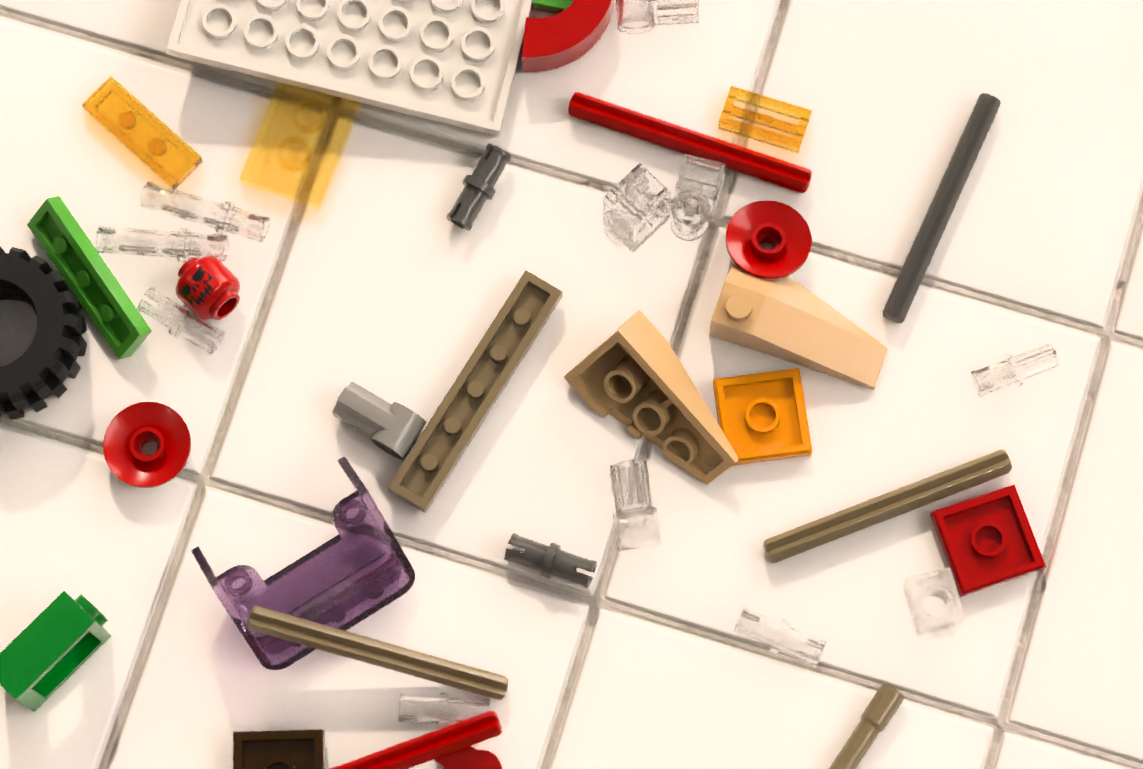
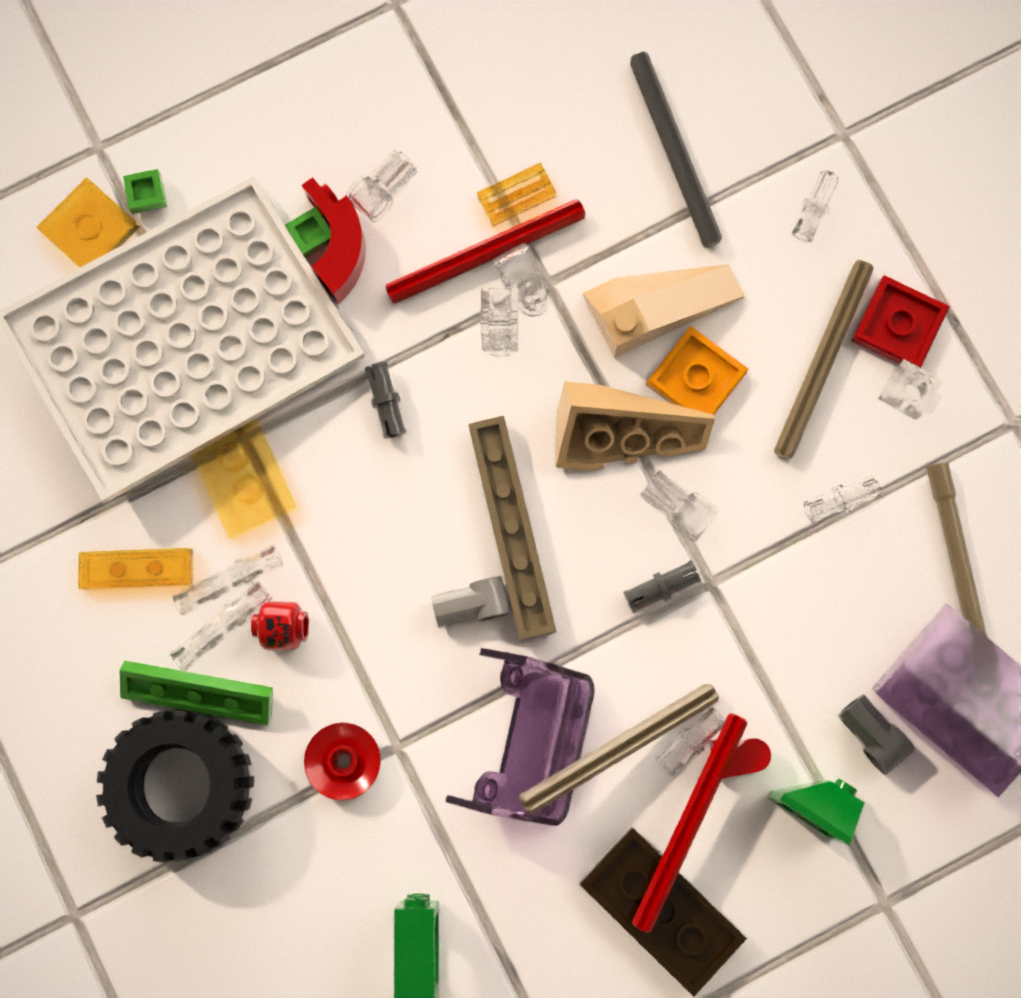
camera: 45 degrees left, 5 degrees up
(180, 320) = (282, 663): clear pin -> none
(772, 224) = (595, 251): red dish -> none

